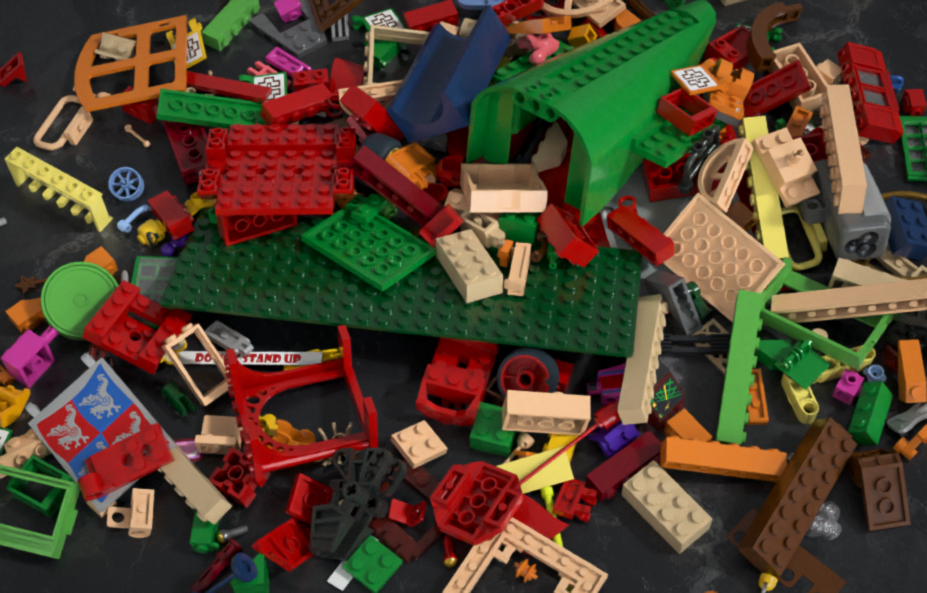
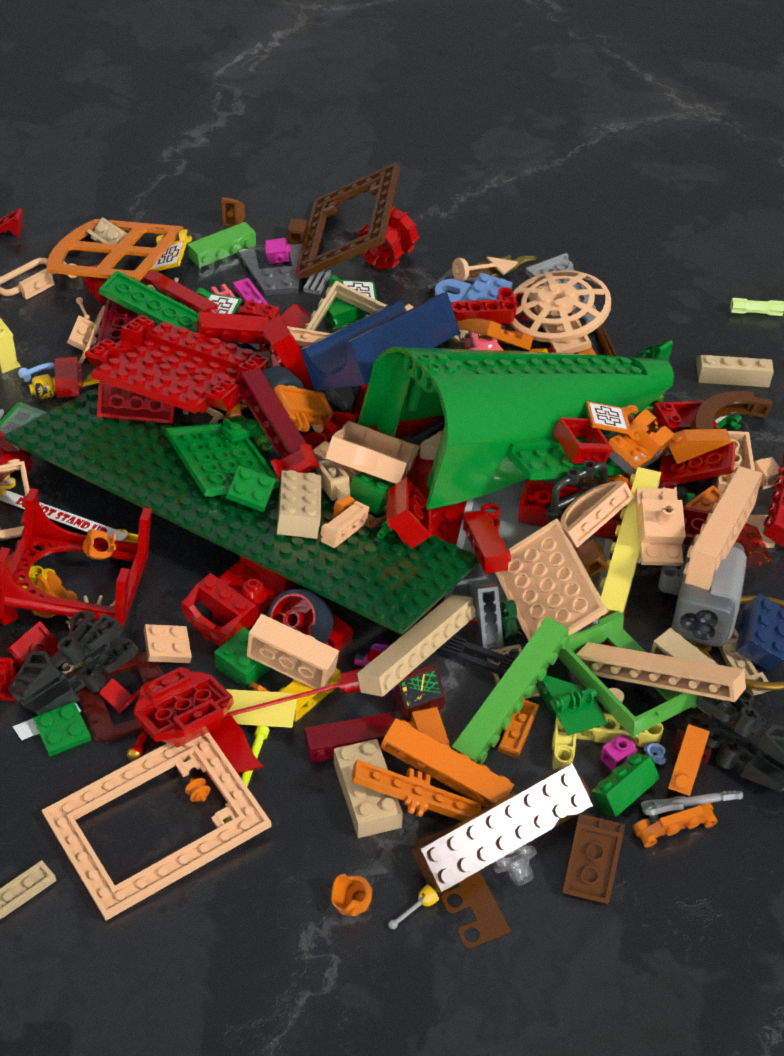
camera: 20 degrees right, 10 degrees down
(126, 184) = (46, 341): medium blue wheel -> none
(157, 161) = (84, 333): none -> light nougat bracket
(169, 249) = (50, 404): dark purple plate -> none
(228, 338) = (53, 494): light grey hinge -> none
(300, 379) = (88, 544): none -> orange piece
(419, 267) = (251, 488): none -> green plate
(425, 18) = (408, 295): red brick -> none
(475, 366) = (254, 591): none -> red cone
(524, 442) = (267, 680): light nougat hinge -> none
(569, 497) = (278, 744): red plate -> none
(613, 439) = (356, 705): dark purple bracket -> none
(713, 495) = (414, 791): none -> orange hinge
(769, 68) = (696, 442): none -> orange slope
(816, 238) = (666, 607): light yellow bar -> none

